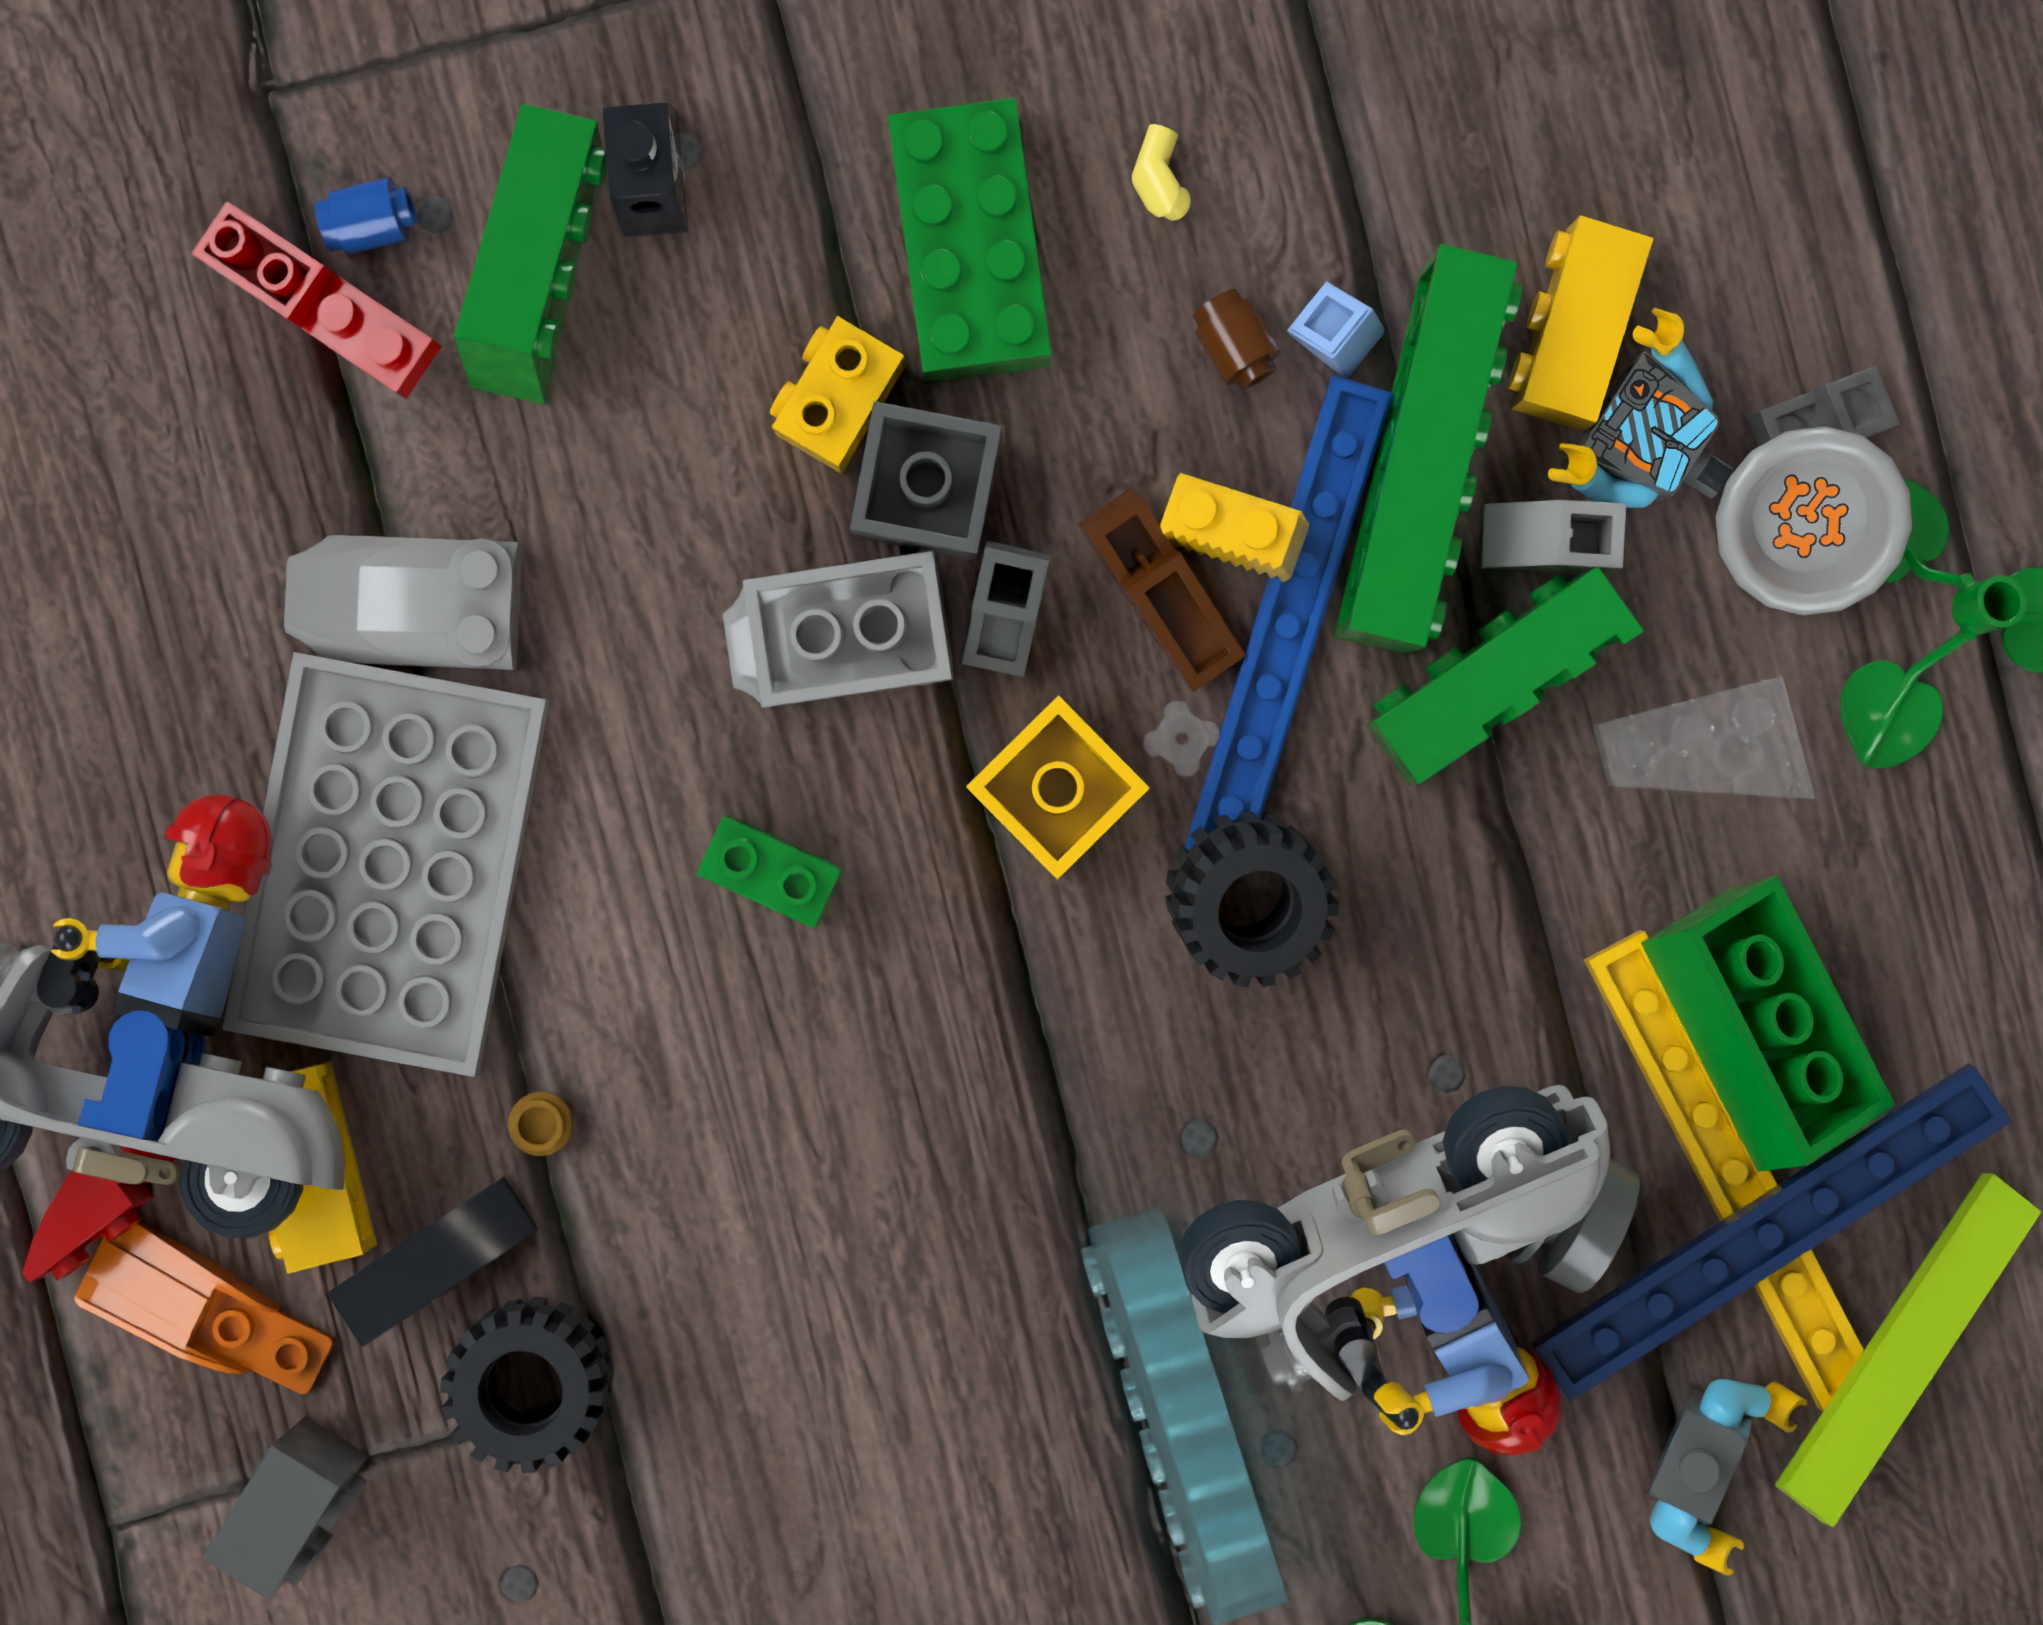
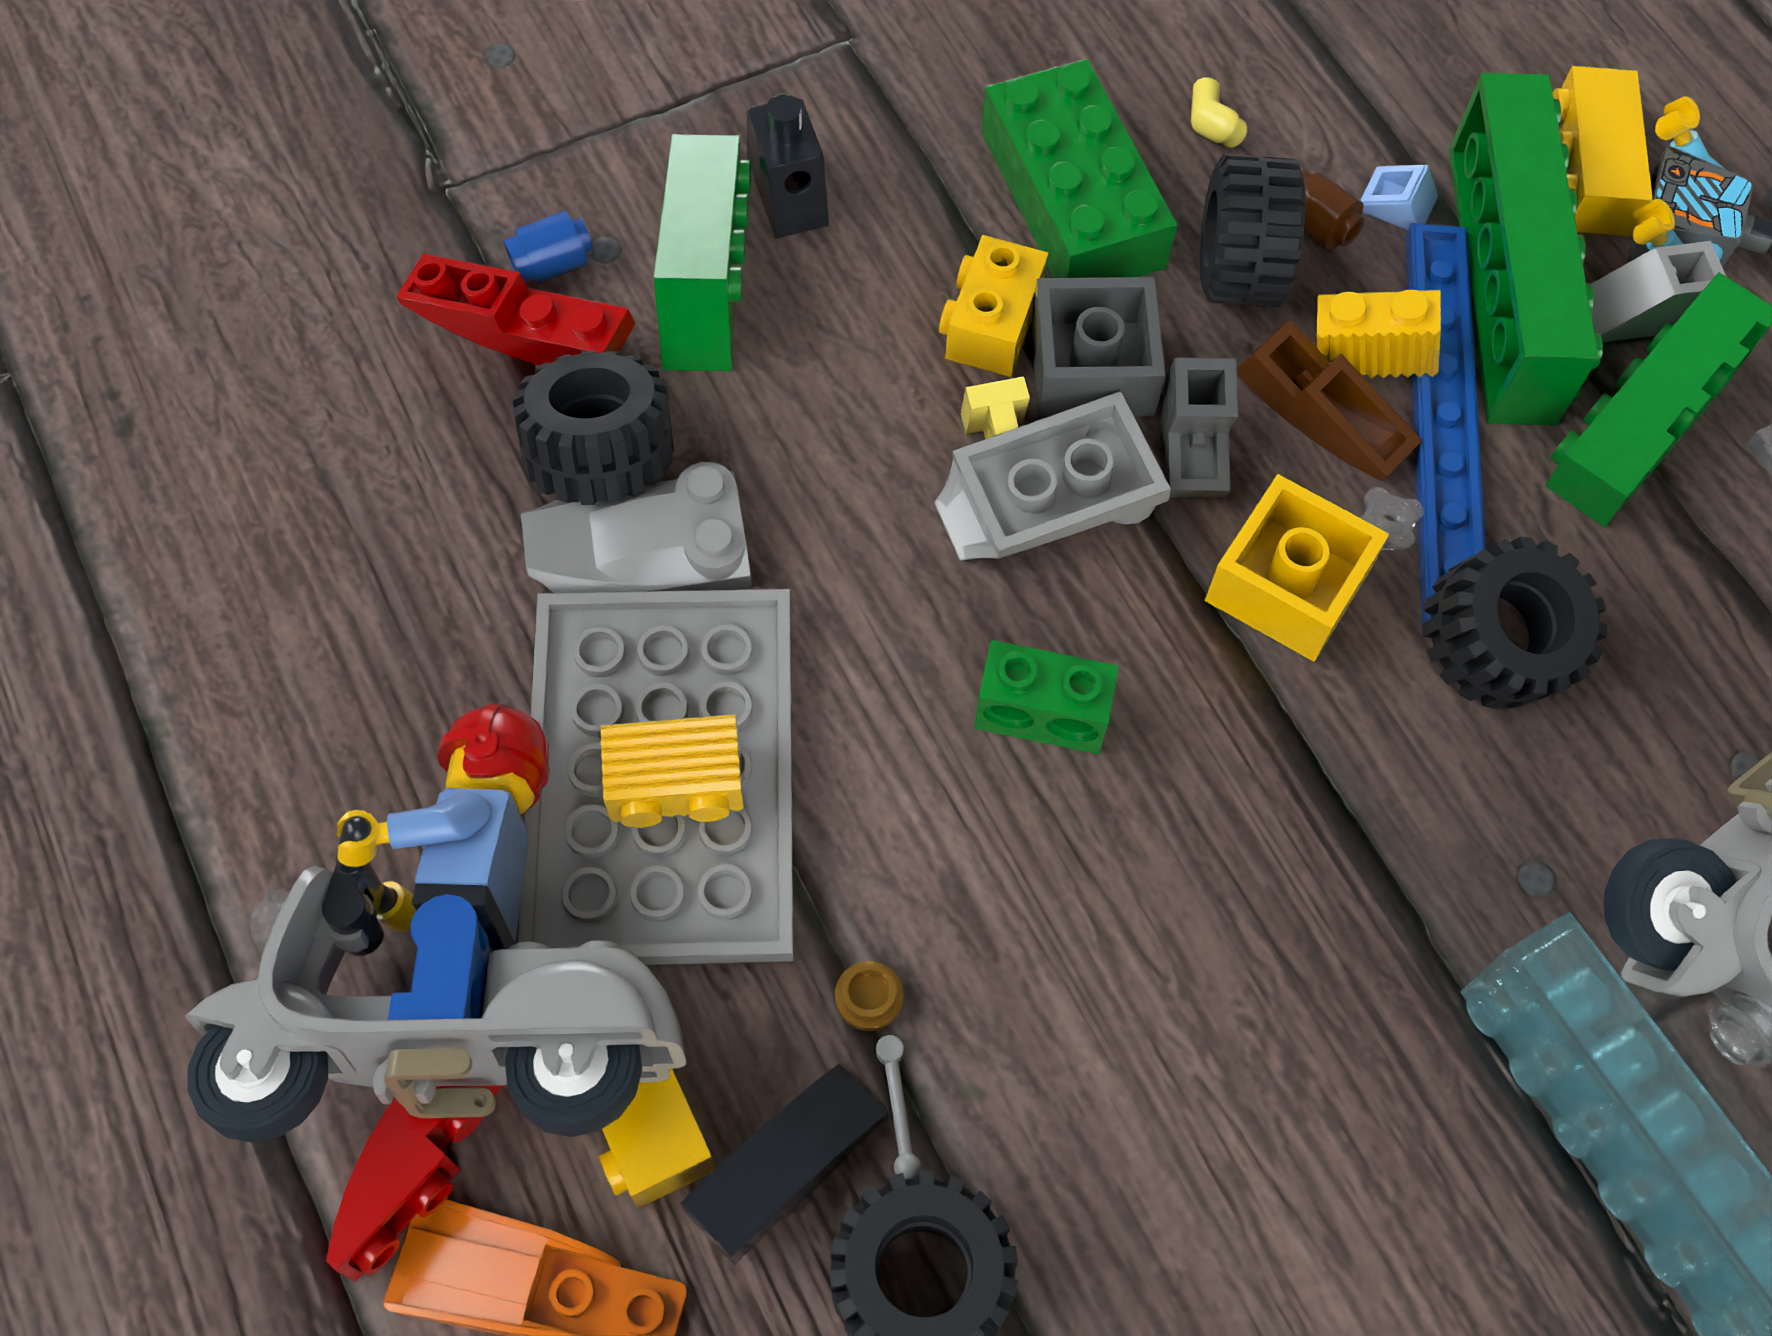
camera: 20 degrees left, 25 degrees down
(362, 432) = (594, 427): none -> black tyre
(387, 885) = (671, 770): none -> yellow brick
(549, 1175) = (889, 1052): none -> light grey hinge
(805, 531) = (995, 406): none -> light yellow tile
(1129, 380) = (1252, 230): none -> black tyre

